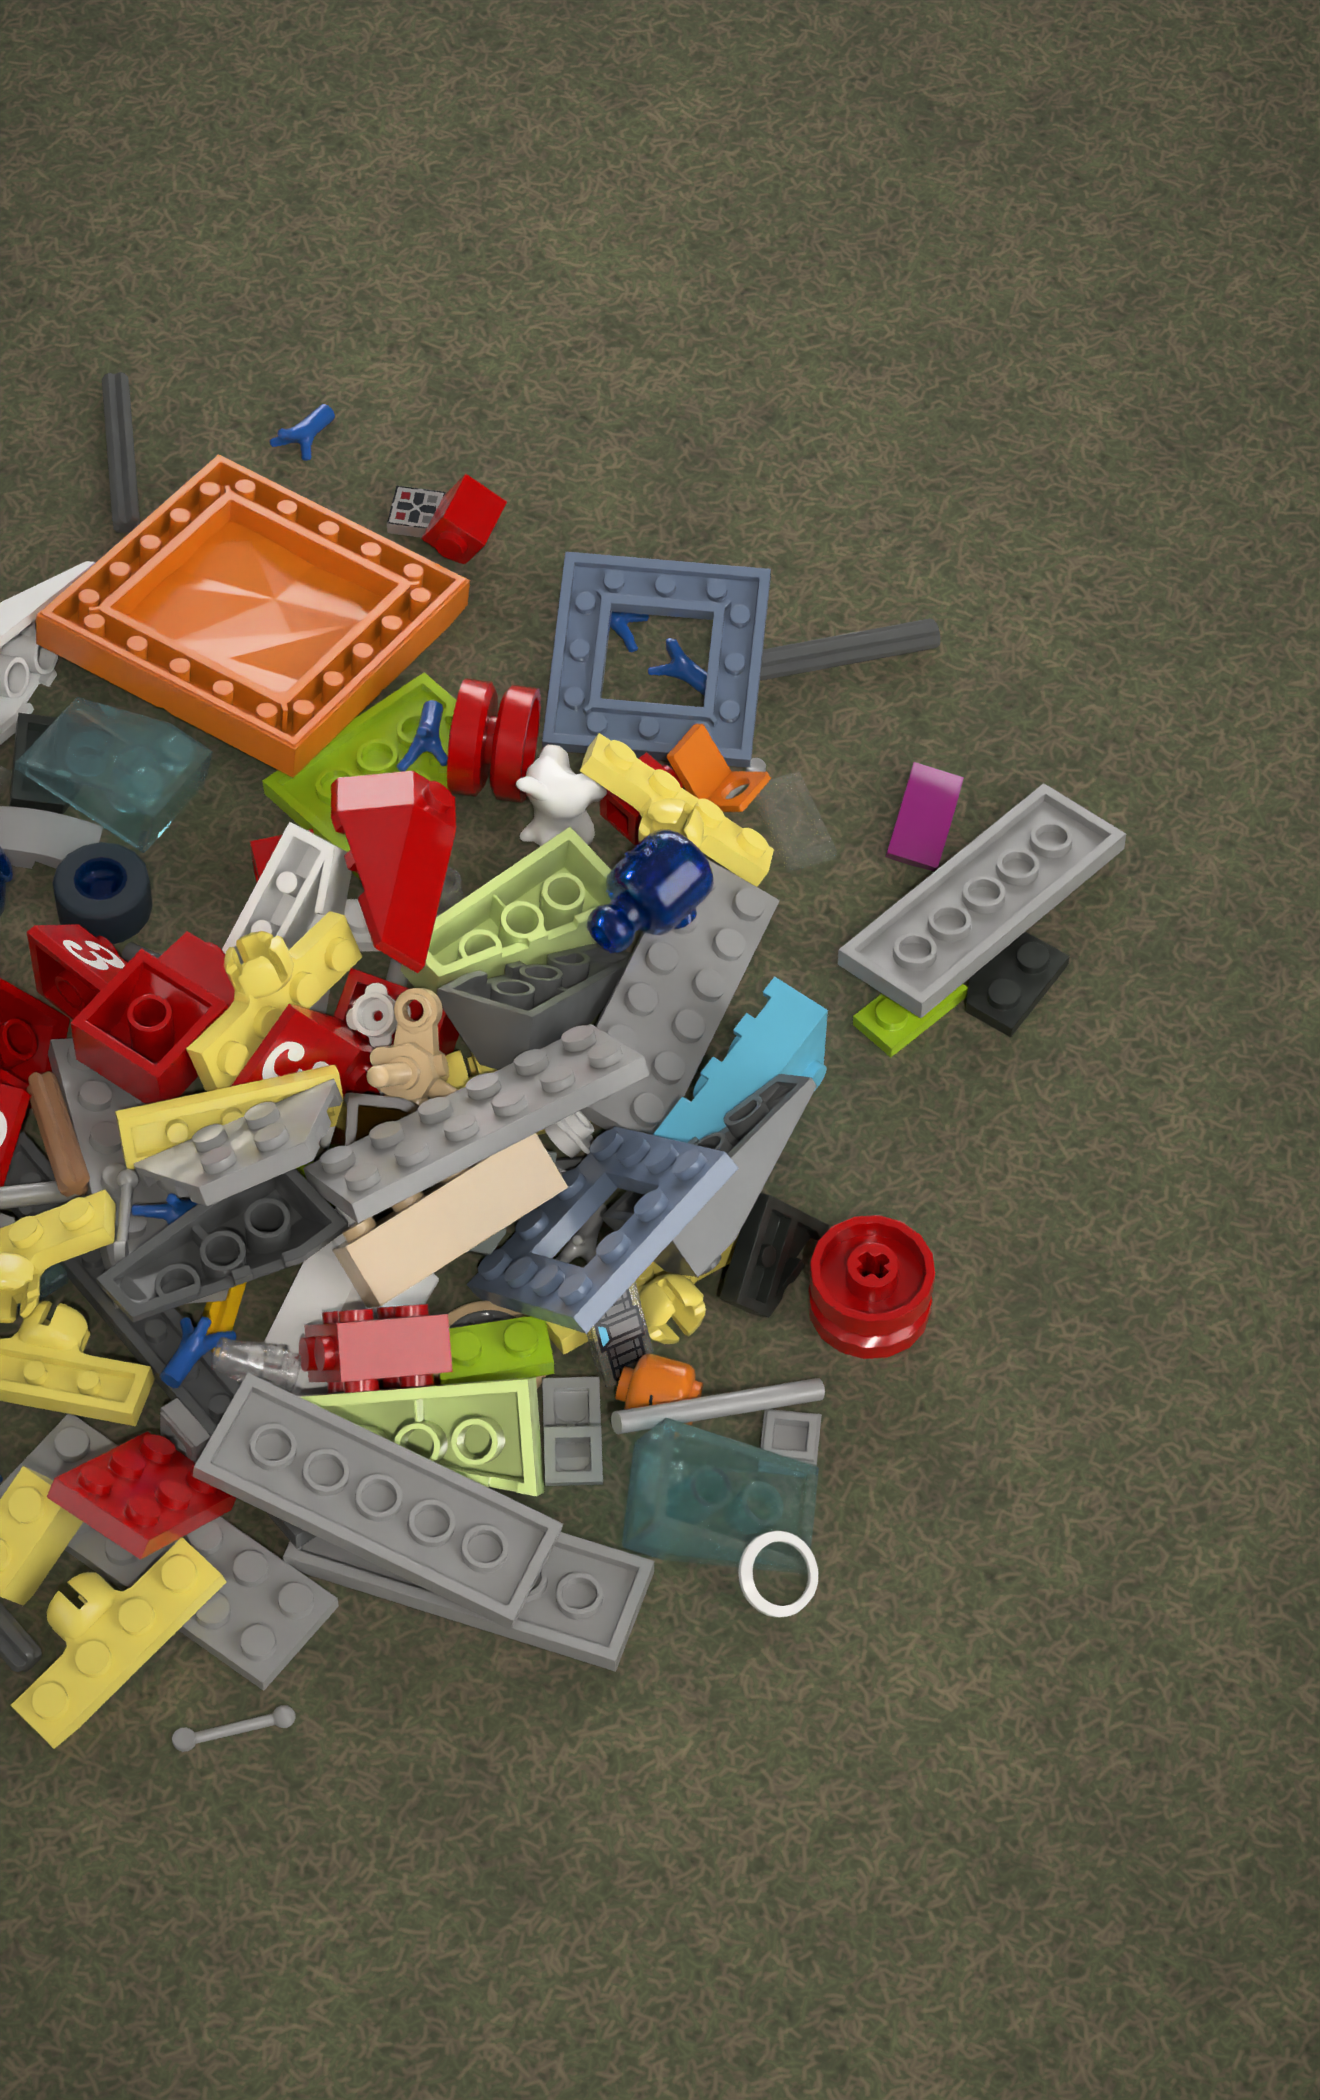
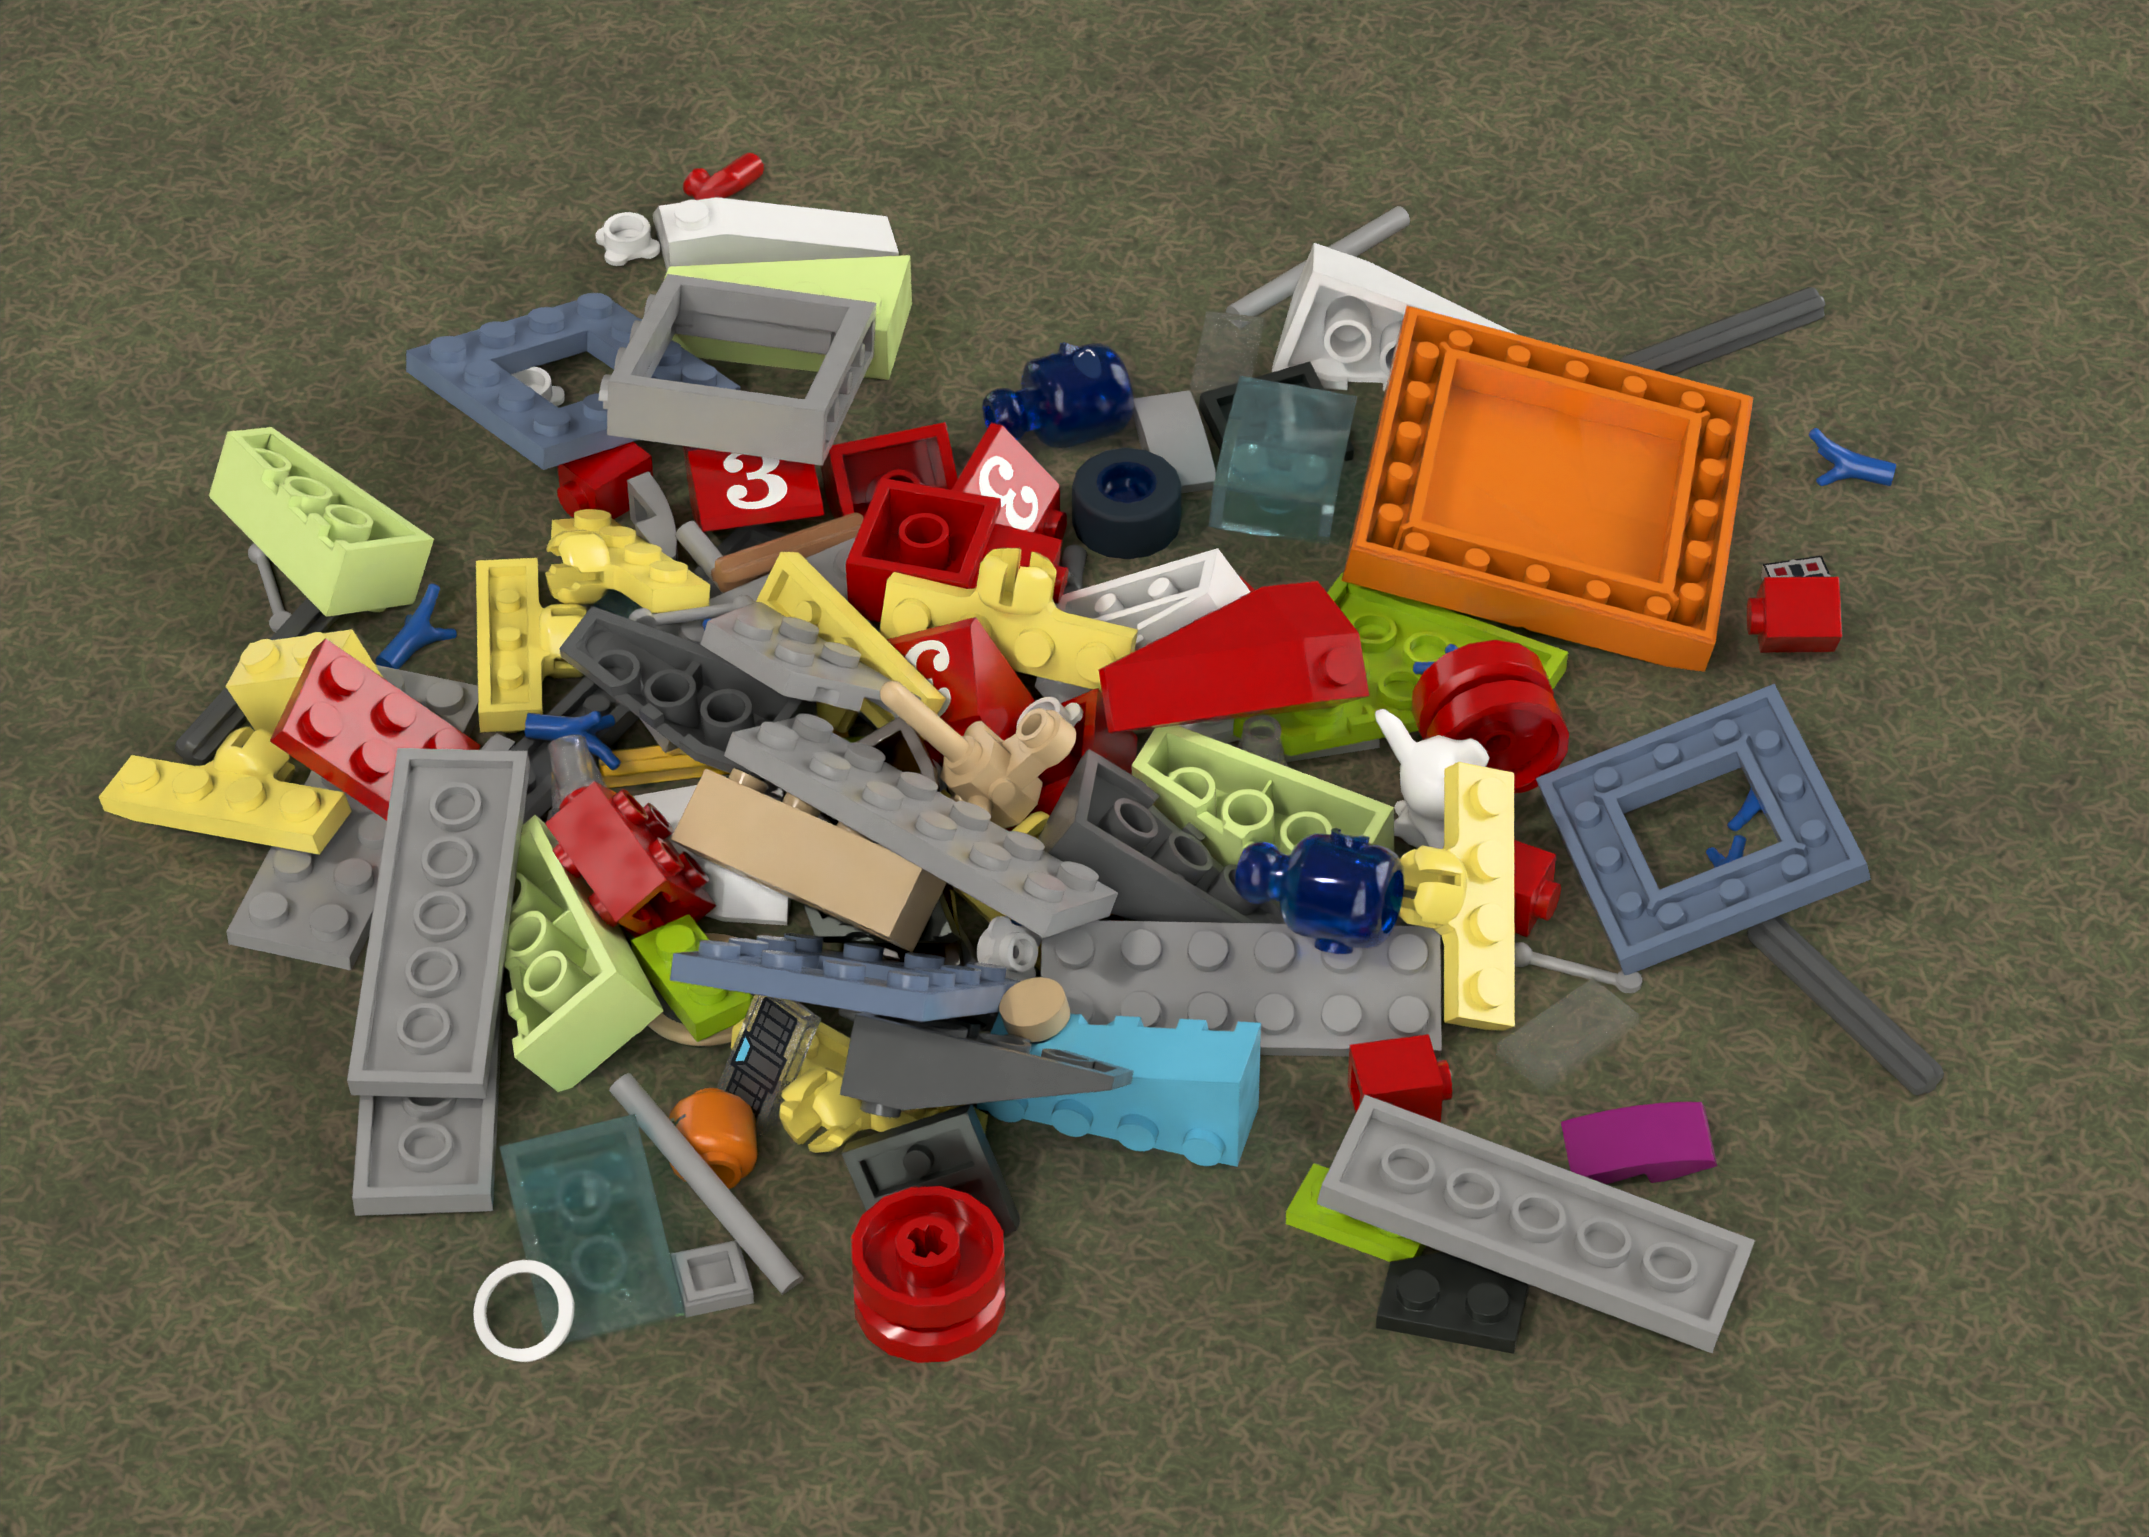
camera: 70 degrees right, 10 degrees down
(185, 1738) = (200, 965): light grey hinge -> none
(572, 1431) = (664, 1074): light grey slope -> none
(668, 1118) = (1035, 1009): none -> tan tile
(708, 775) = (1572, 921): orange bracket -> none
(807, 937) = (1400, 1074): none -> red brick

